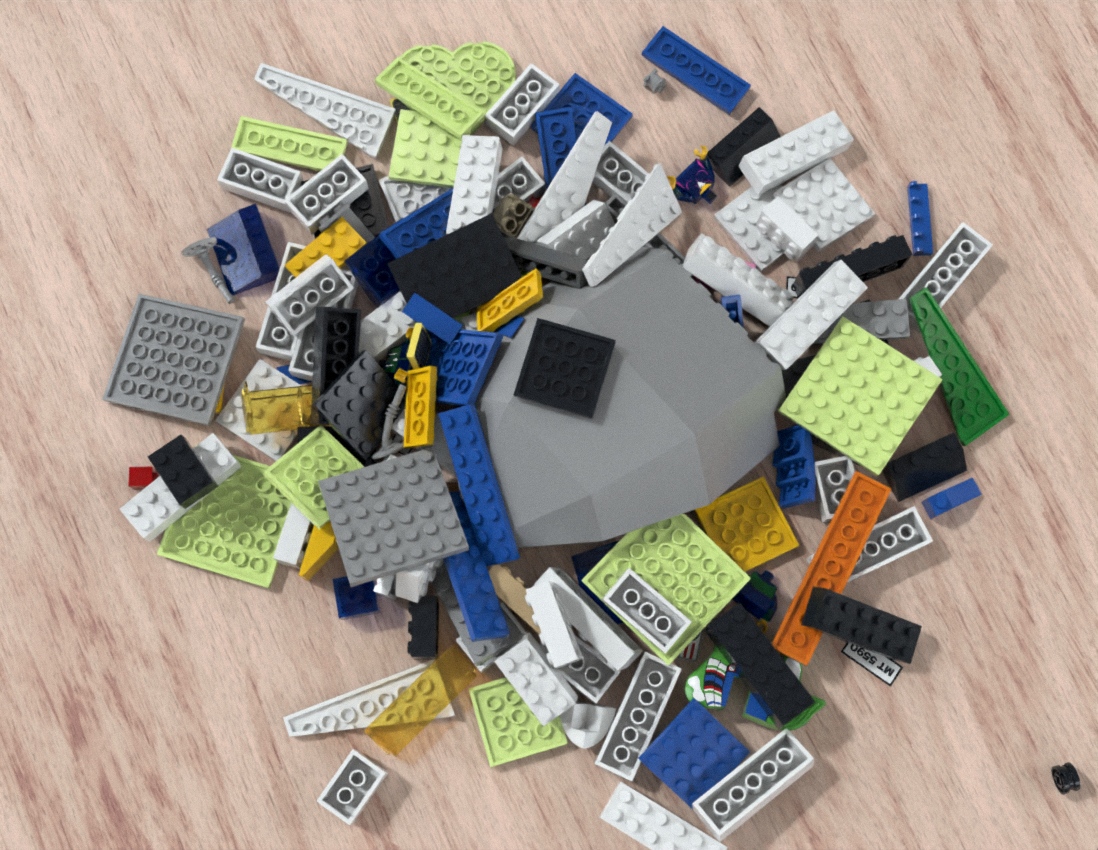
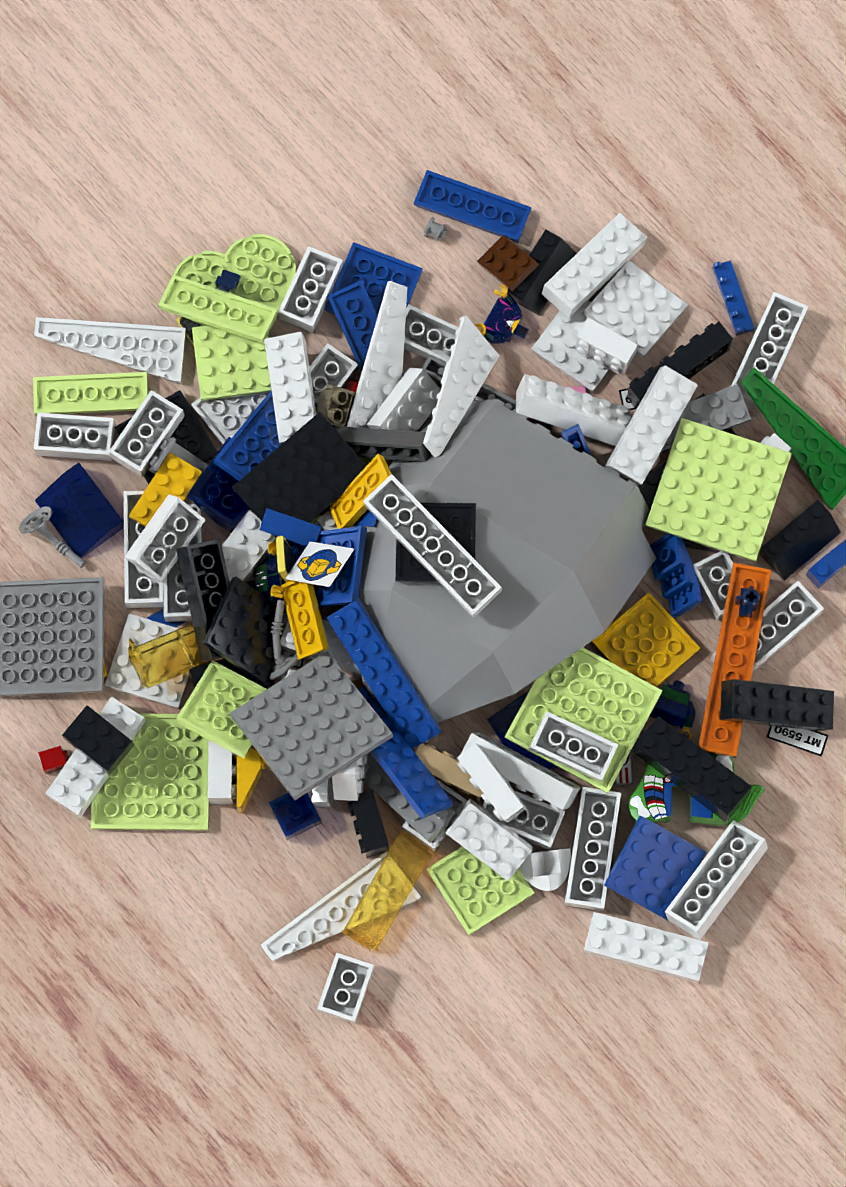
camera: 15 degrees left, 0 degrees up
(446, 76) = (227, 281): none -> dark blue bracket
(448, 359) = (319, 564): none -> sticker
(559, 370) = (432, 546): none -> white brick
(714, 128) = (507, 263): none -> reddish brown plate
(860, 513) = (747, 601): none -> dark blue piece

